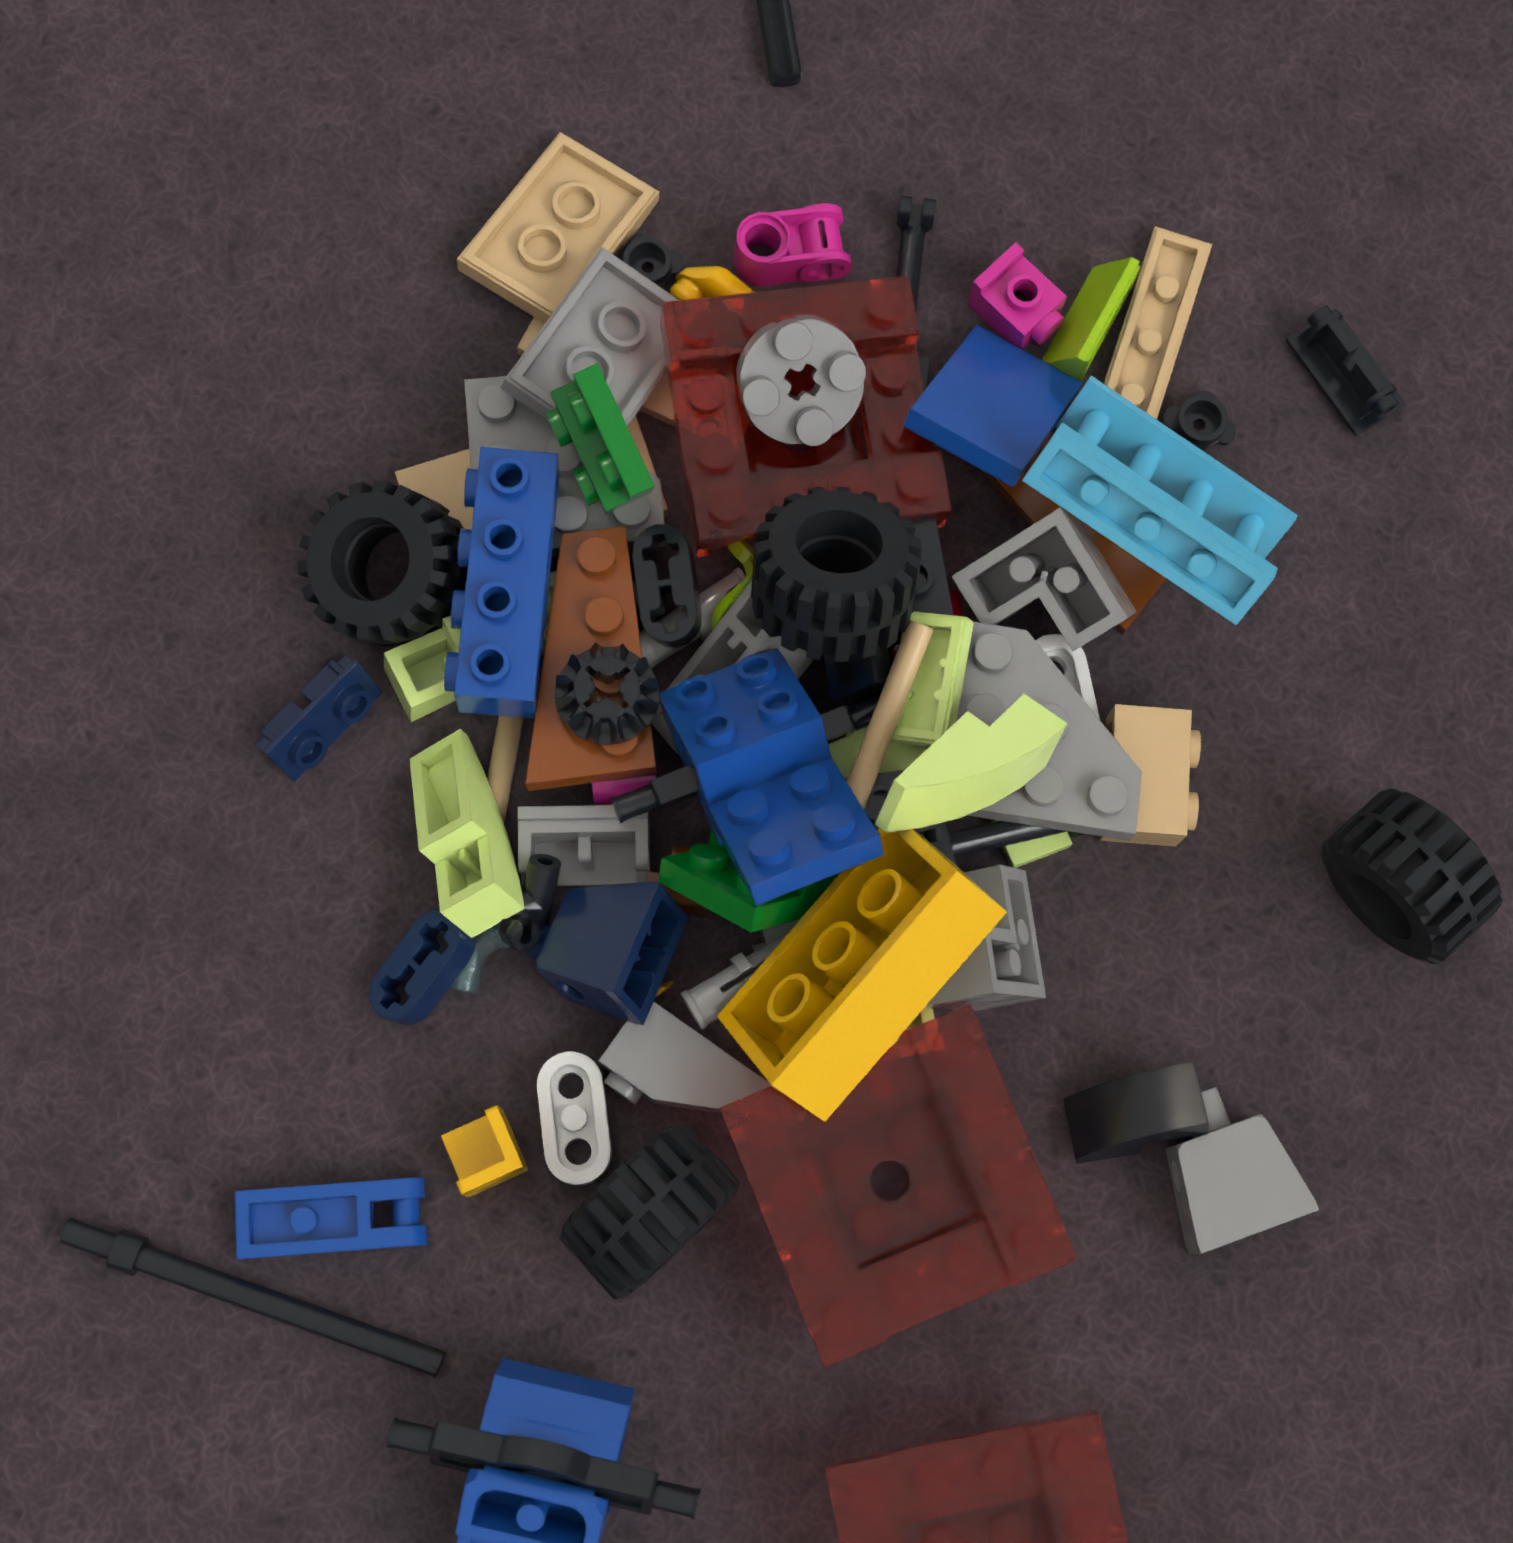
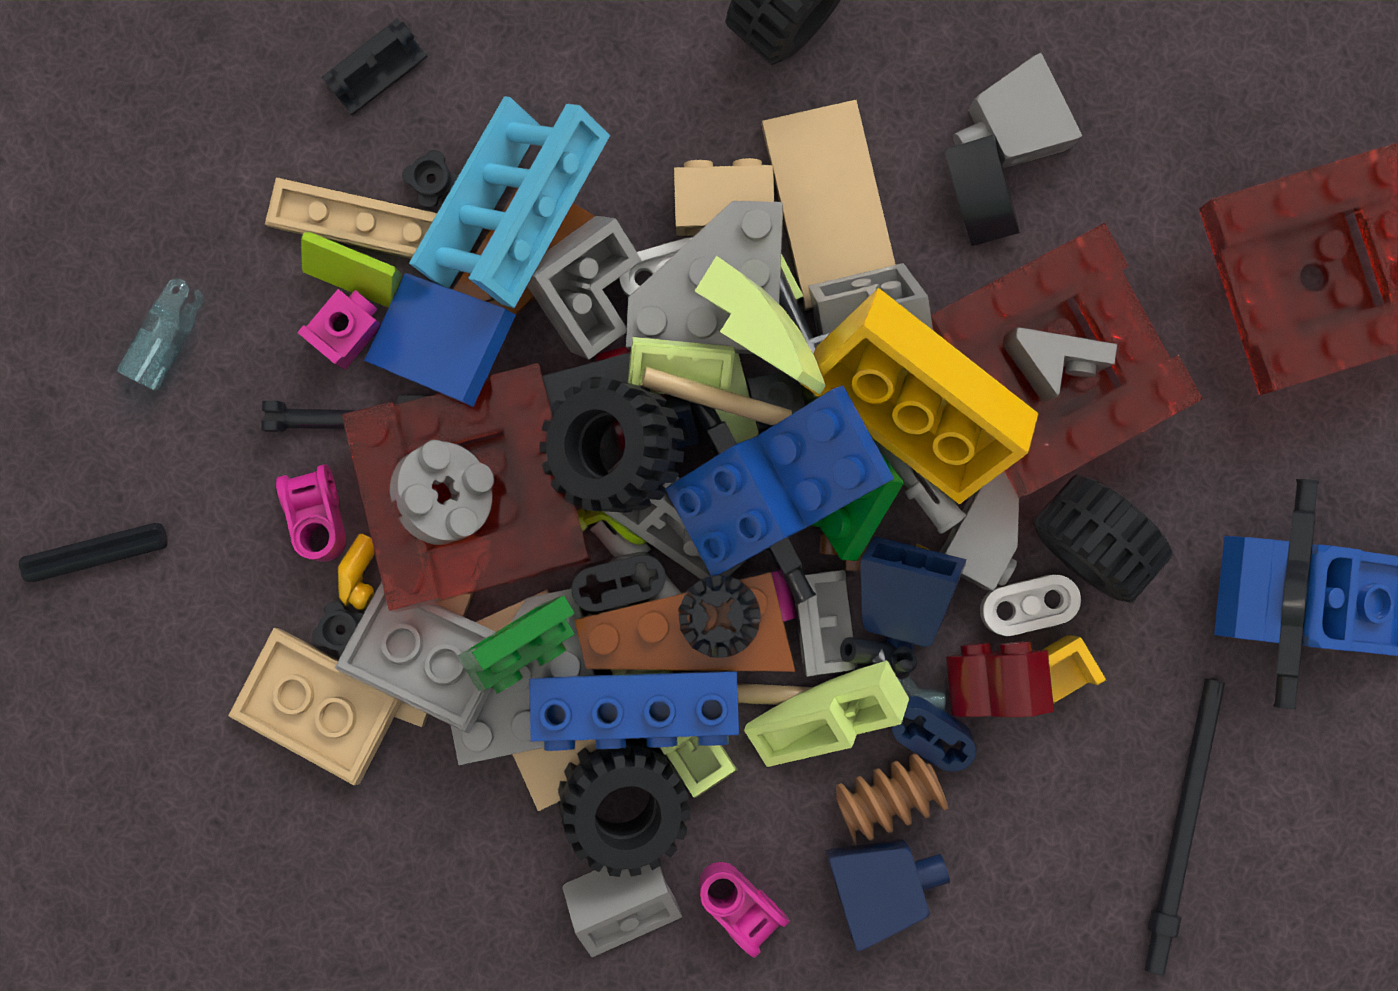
camera: 95 degrees left, 10 degrees up
(233, 703) = (746, 913): none -> dark pink piece
(234, 880) = (883, 888): none -> dark blue torso
(258, 555) = (618, 909): none -> light grey panel
(327, 1218) = (1124, 777): blue plate -> none
(338, 698) = (763, 854): dark blue hinge -> none
(344, 902) = (890, 797): none -> medium nougat piece
(478, 1055) = (1000, 682): none -> dark red brick
(908, 1156) = (1044, 354): none -> light grey slope
(1024, 96) = (161, 336): none -> clear light blue piece
(1147, 915) = (827, 194): none -> tan tile

